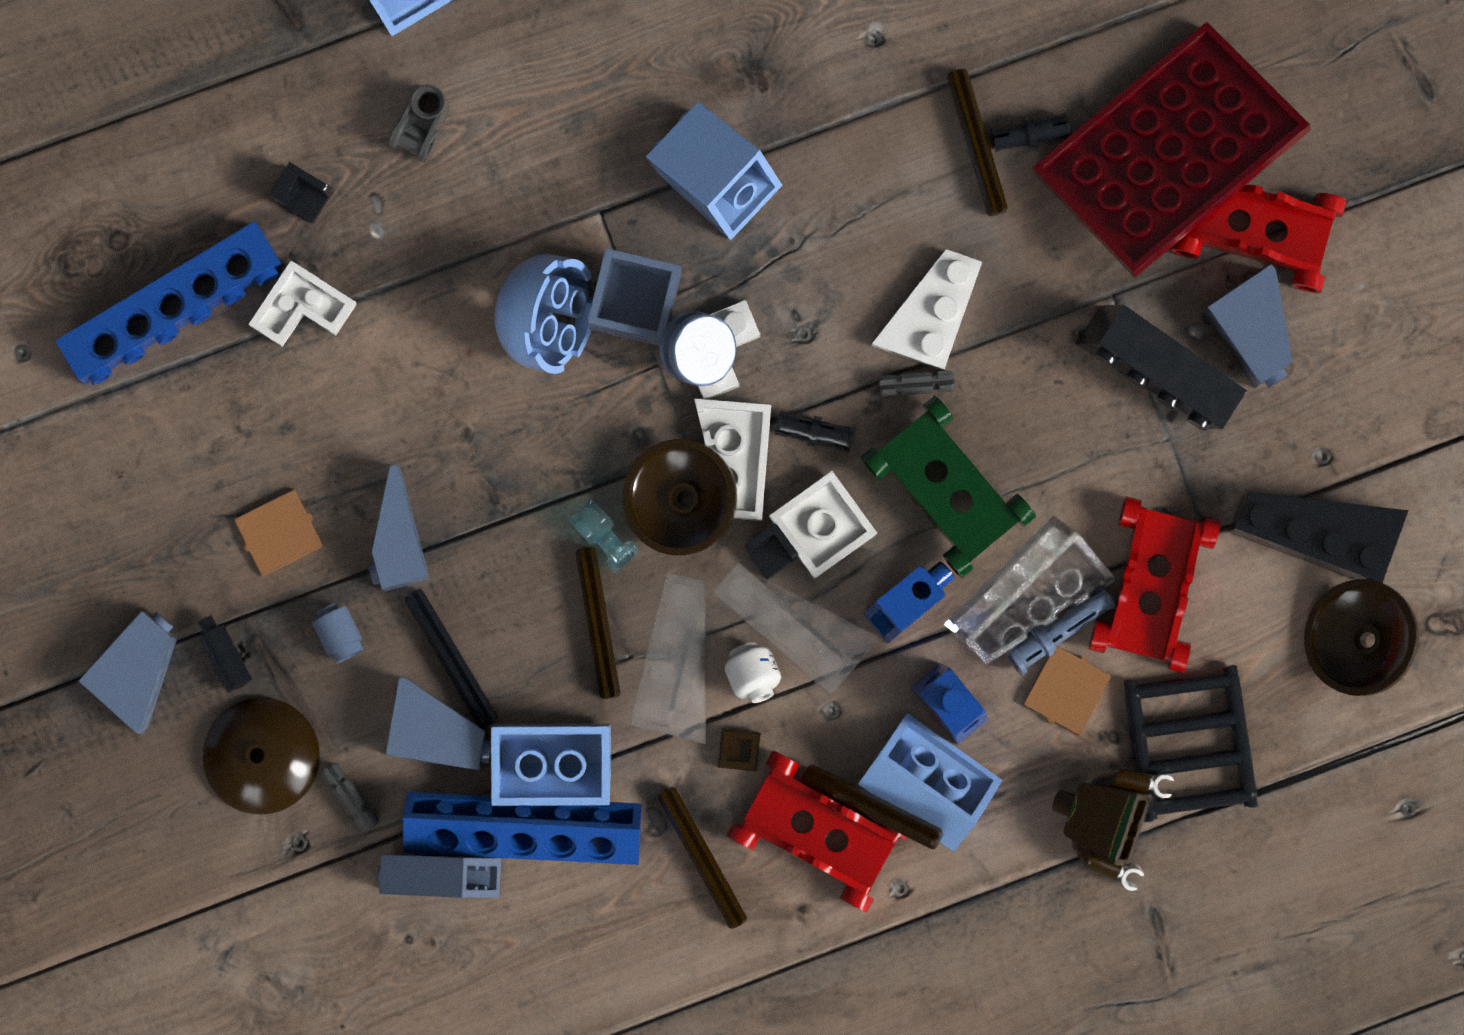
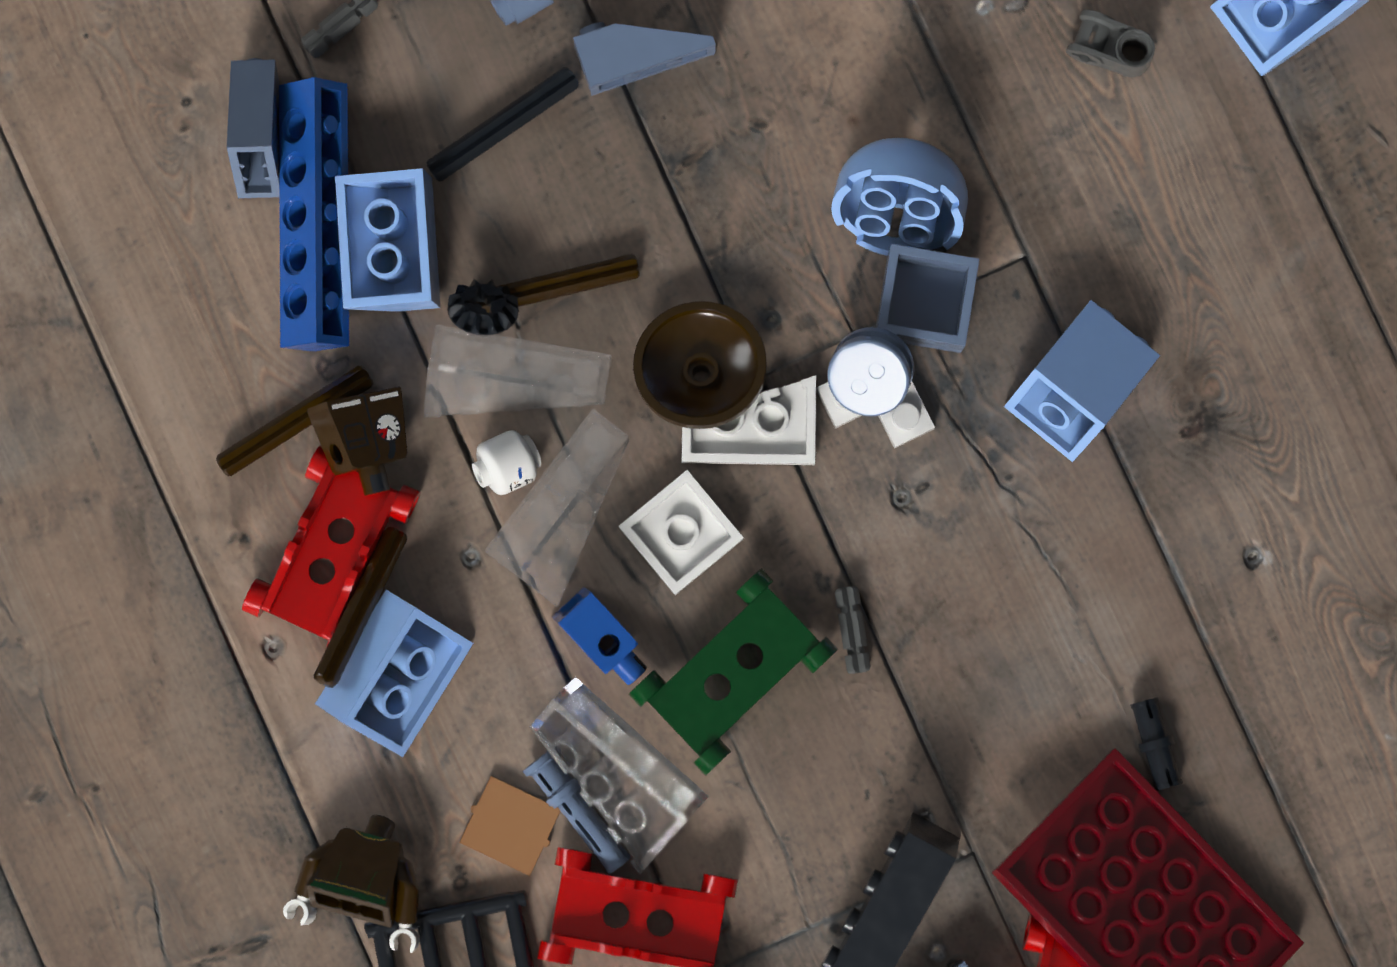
camera: 85 degrees right, 0 degrees up
(434, 732) = (419, 108): sand blue slope -> none
(596, 529) = (660, 274): clear light blue leg -> none
(626, 691) = (473, 317): none -> black gear
(721, 795) = (362, 435): none -> dark brown torso
(739, 750) = (423, 456): dark brown tile -> none
(771, 551) = (646, 474): black panel -> none
(814, 431) = (788, 516): black pin -> none
(932, 313) = (936, 644): white wing -> none
(950, 702) = (485, 689): blue torso -> none
(977, 142) = (1140, 683): dark brown axle -> none

